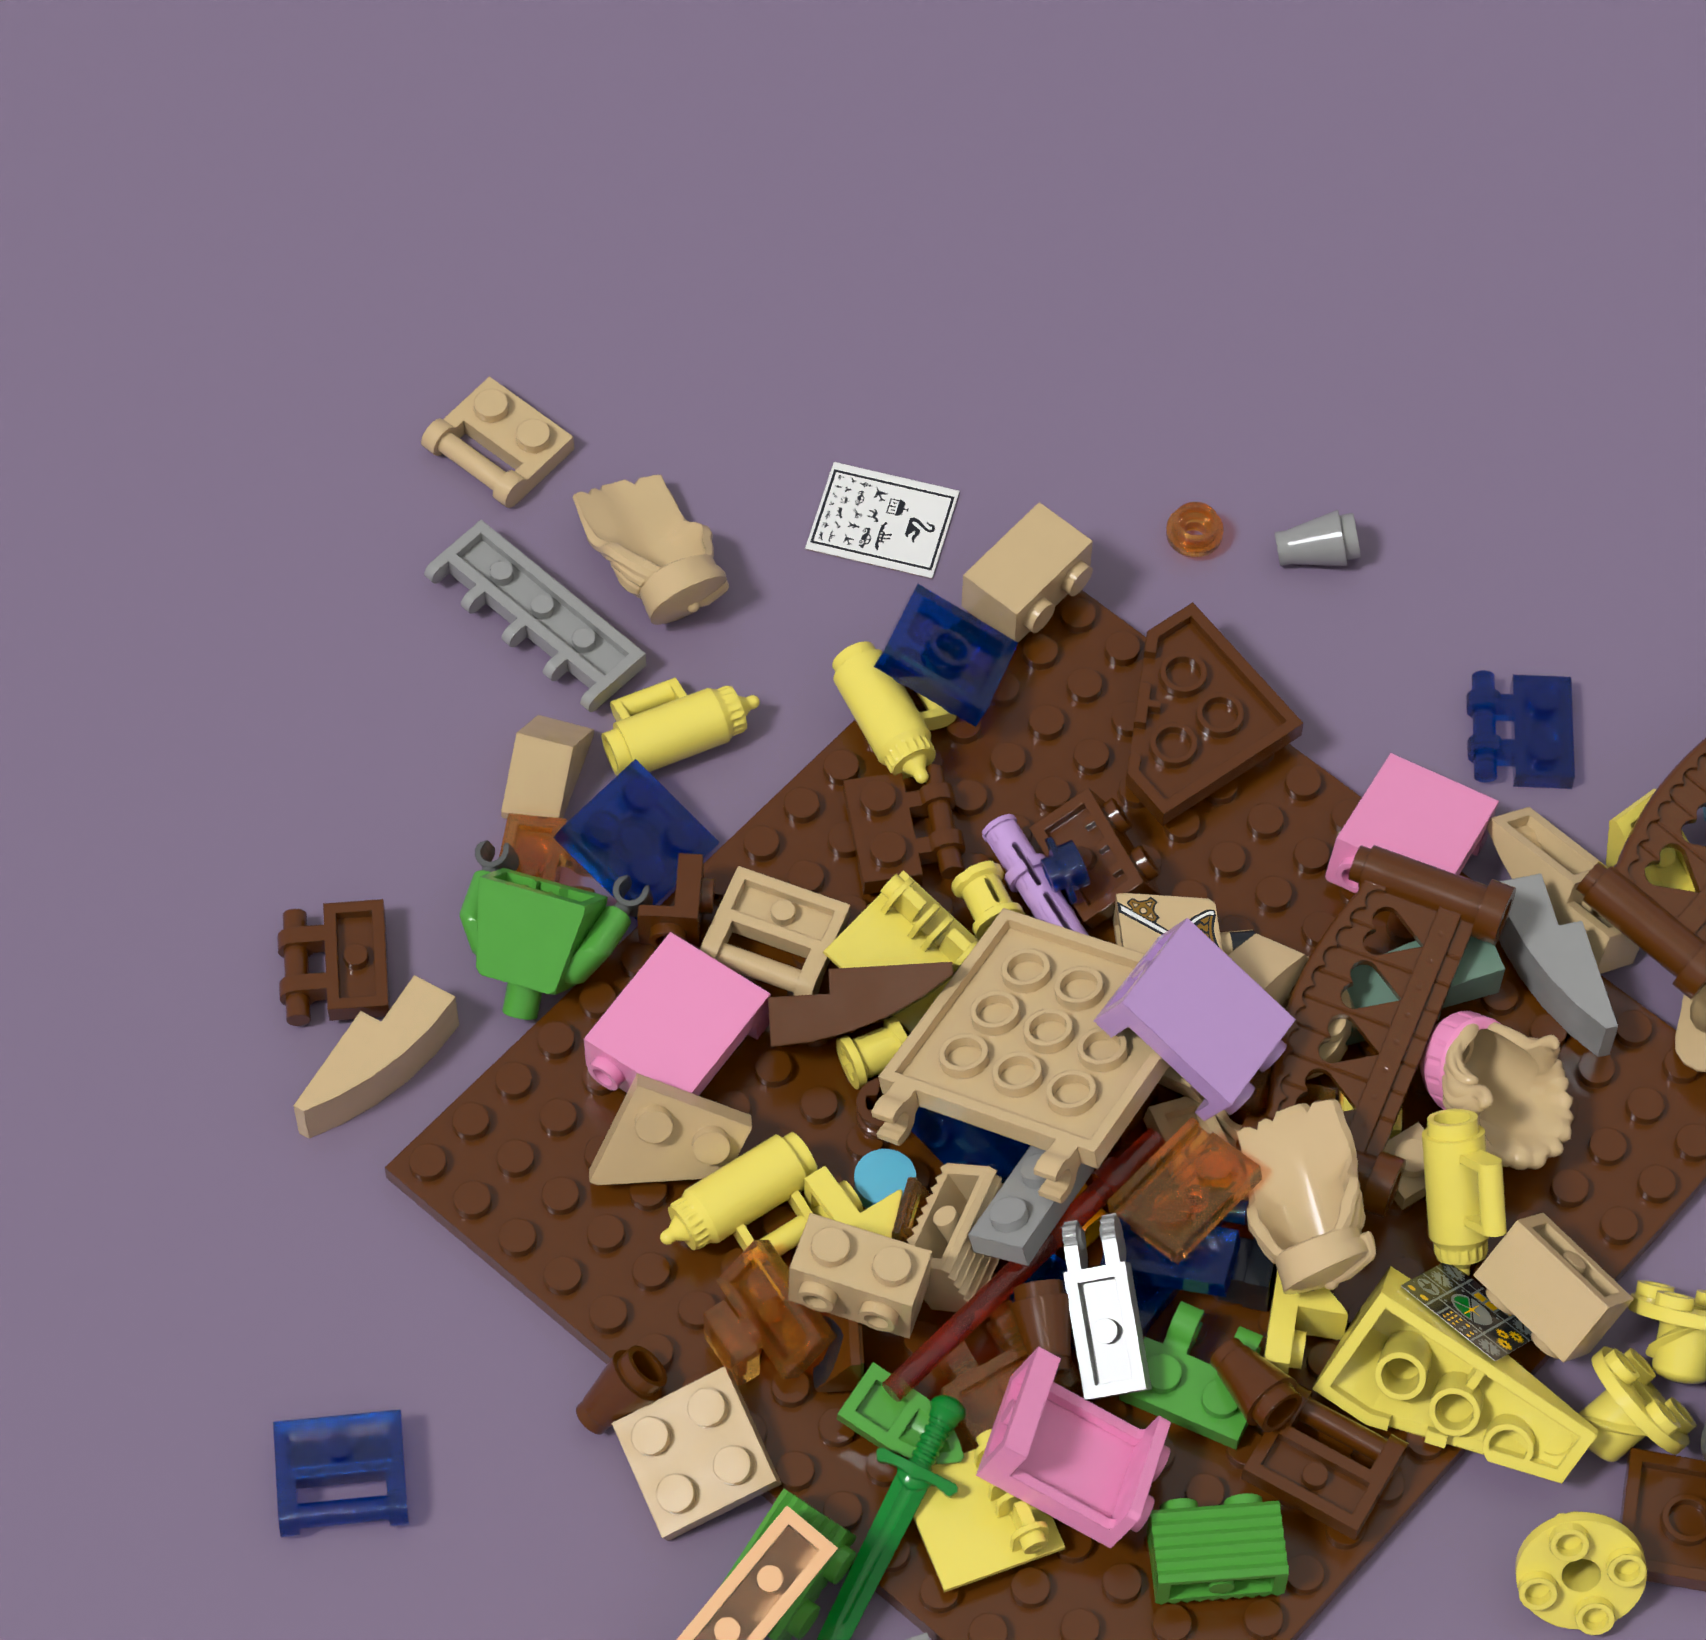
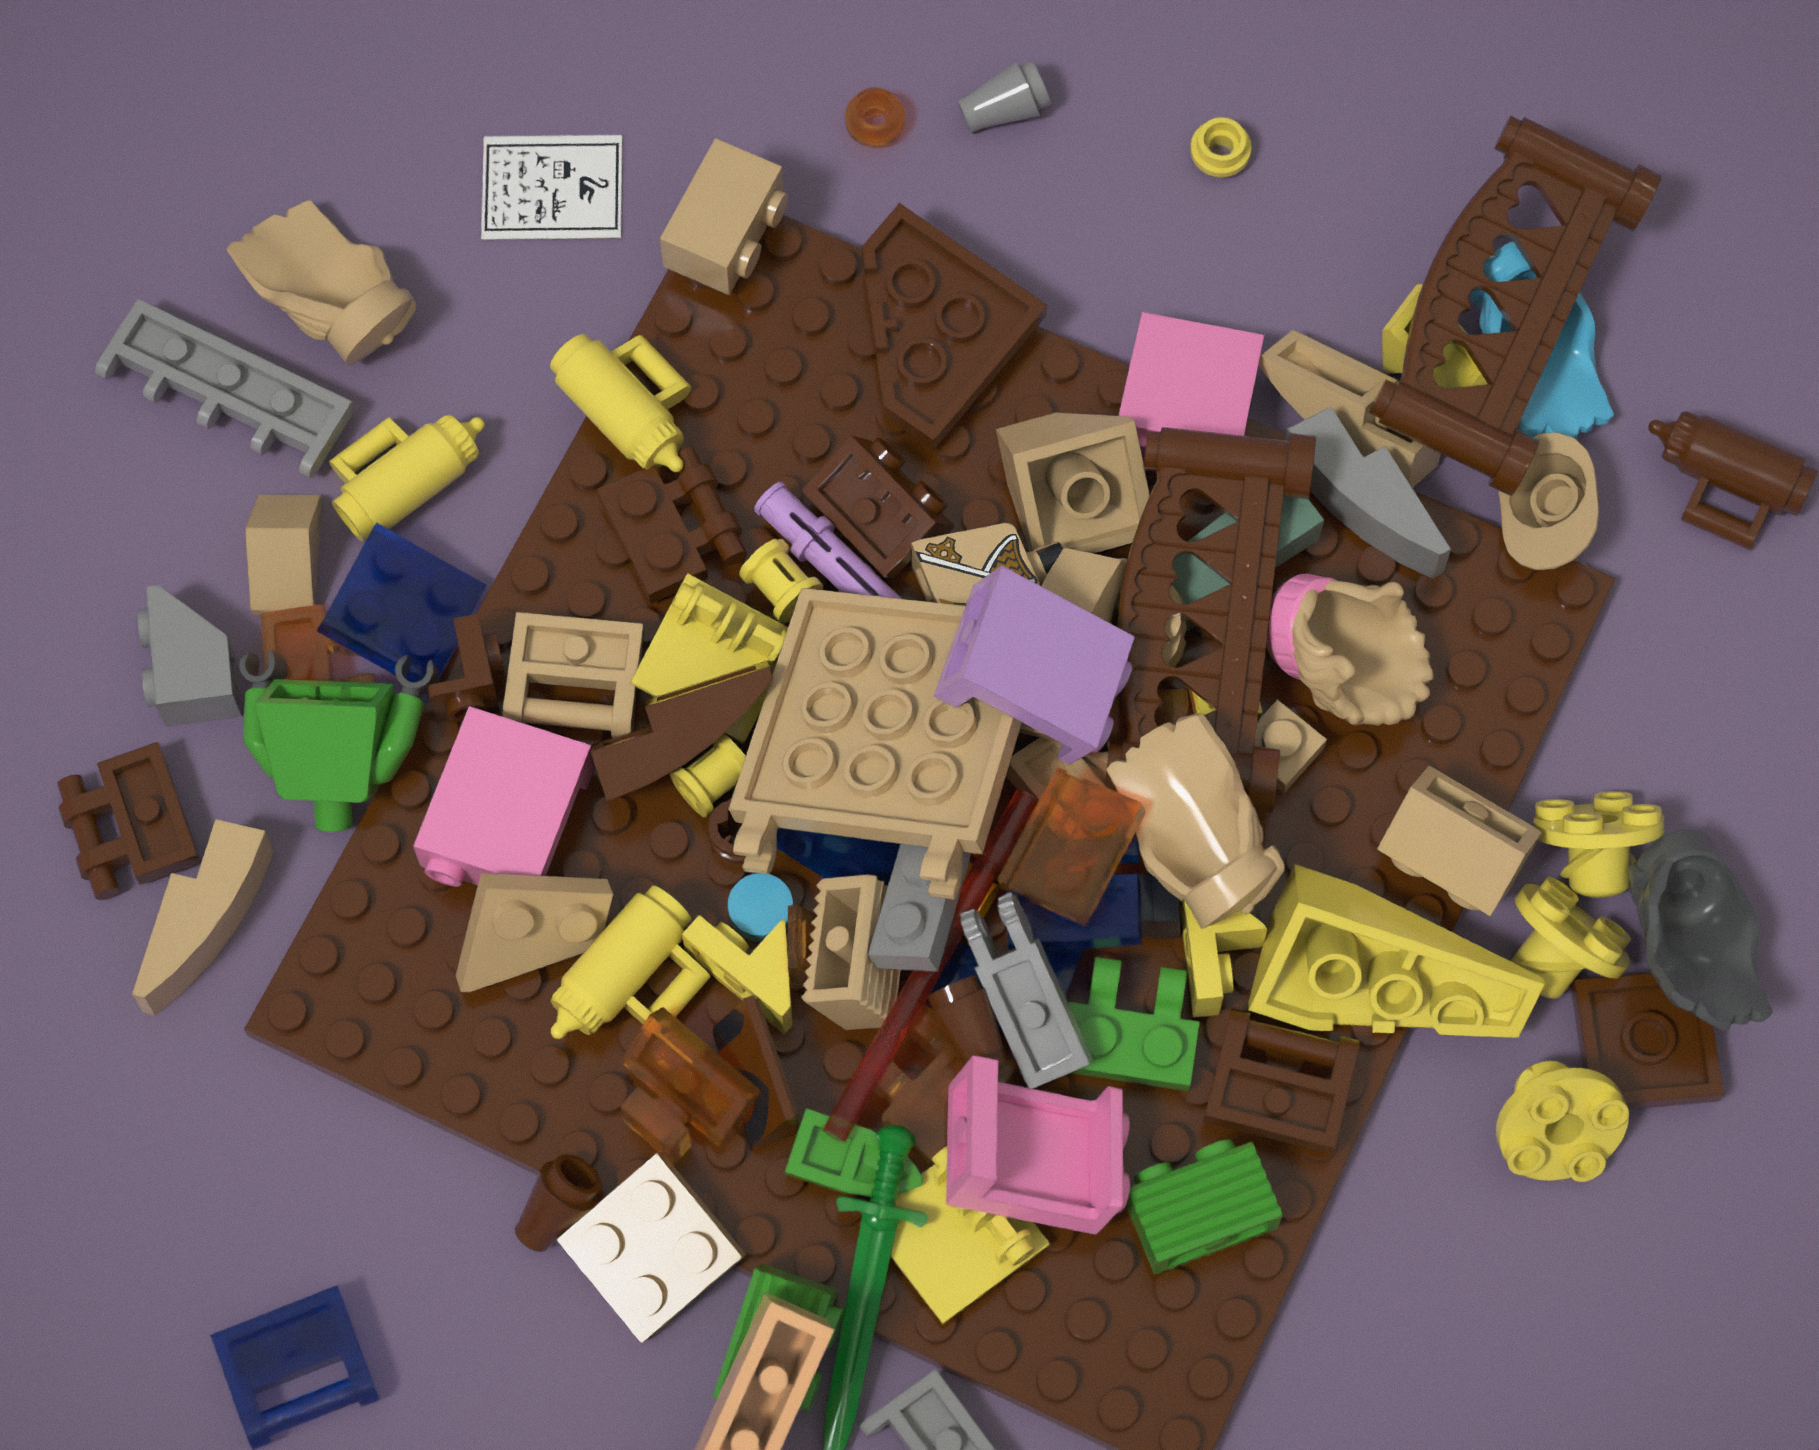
camera: 15 degrees left, 10 degrees up
(433, 842) = (191, 663): none -> light grey slope
(507, 430) = (137, 190): tan plate -> none
(859, 1275) = (770, 1030): tan brick -> none
(946, 655) = (665, 328): clear blue plate -> none
(1064, 868) = (852, 529): clear blue plate -> none
(1256, 1385) = (1197, 1028): reddish brown cone -> none
(1284, 878) = (1075, 479): none -> tan slope
(1461, 1188) = (1344, 764): light yellow piece -> none
(1468, 1310) = (1376, 885): sticker -> none
(1509, 620) = (1225, 133): none -> light yellow plate
(1540, 730) = (1279, 240): clear blue plate -> none

